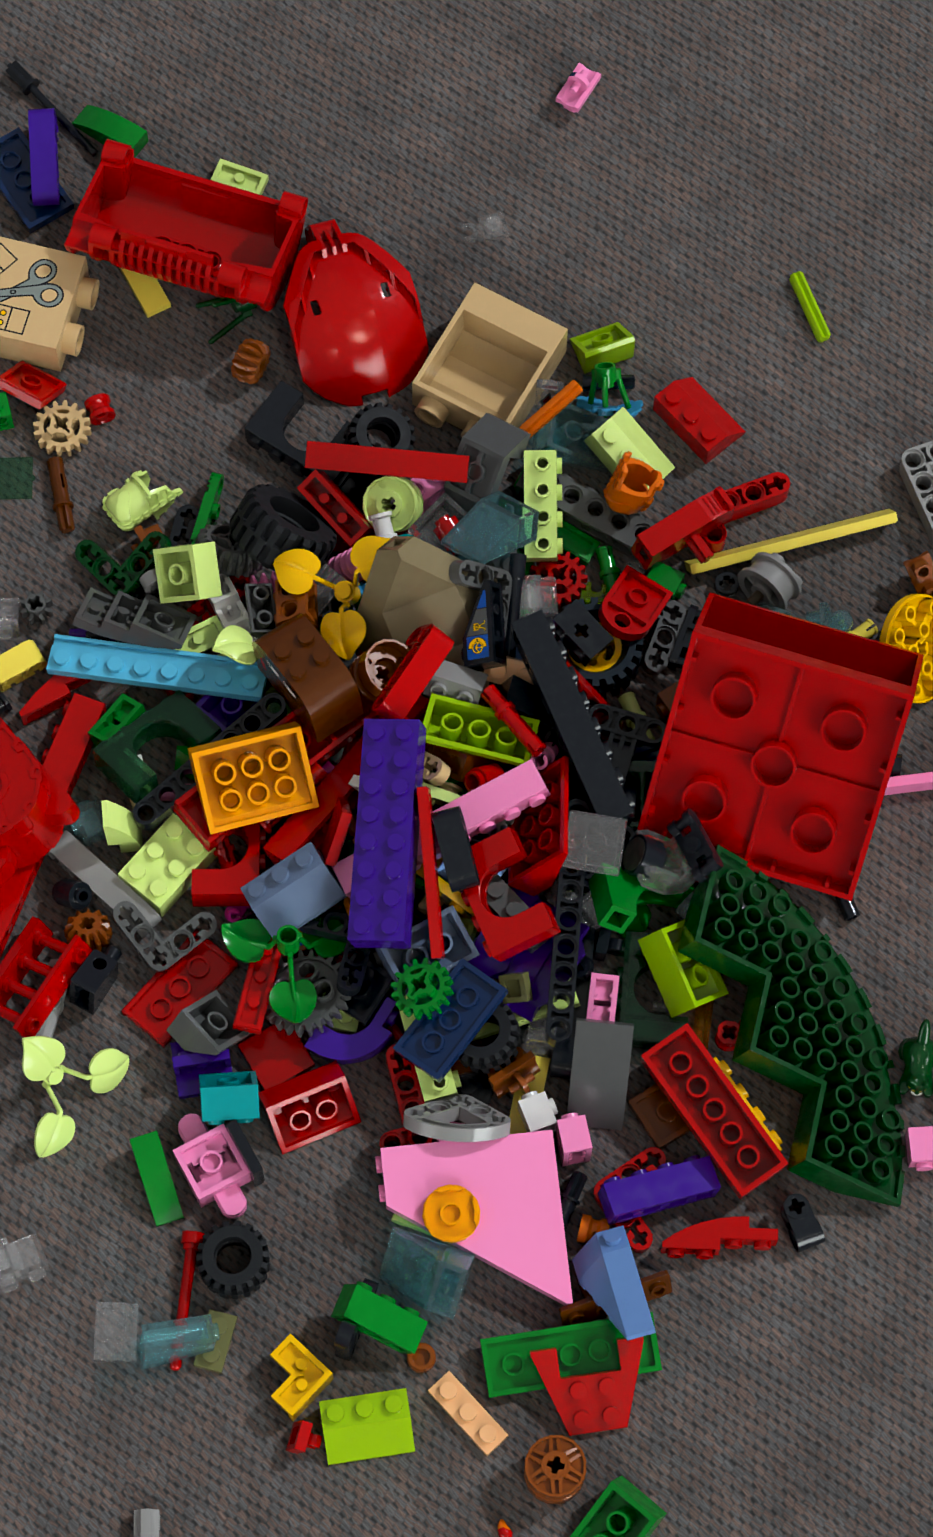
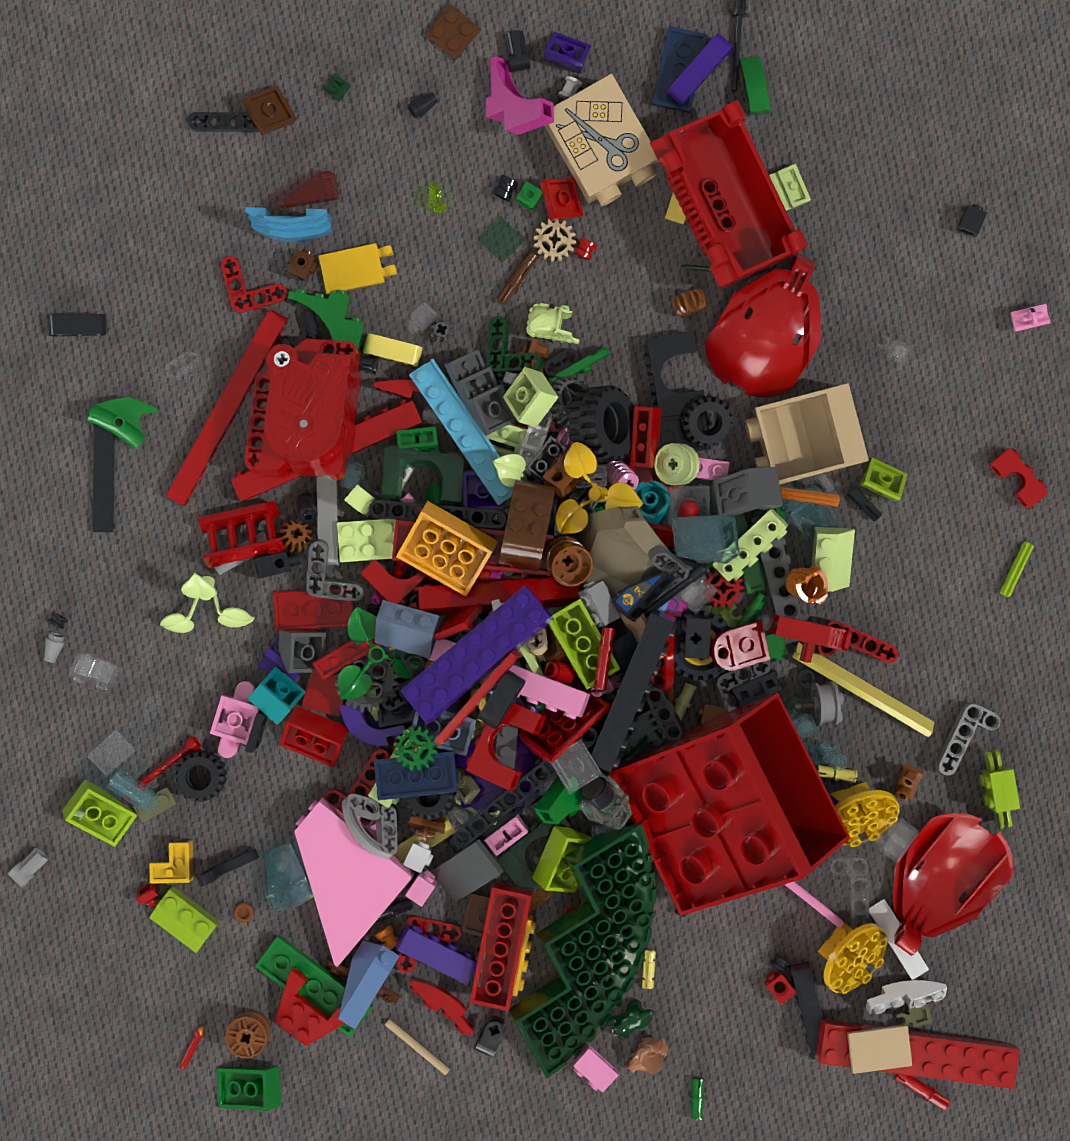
camera: 45 degrees right, 20 degrees up
(156, 1178) = (205, 696): green slope -> none
(165, 1406) = (98, 813): none -> lime slope
(380, 1317) = (238, 879): green brick -> none
(382, 524) = (656, 473): white bush -> none
(387, 461) = (694, 441): red tile -> none
(427, 652) = (578, 582): red beam -> none
(434, 59) = (972, 220): none -> black brick
(451, 1213) = (320, 868): light orange tile -> none
(468, 1413) = (238, 961): light nougat plate -> none
(605, 375) = (861, 505): green plant -> none
(695, 845) = (628, 815): black plate -> none
(696, 418) = (889, 572): red slope -> none
(727, 1027) = (549, 906): red bush -> none
(740, 1312) = (417, 1047): none -> tan bar
(742, 224) = (1031, 489): none -> red arch
(881, 1000) = (648, 969): none -> light yellow axle

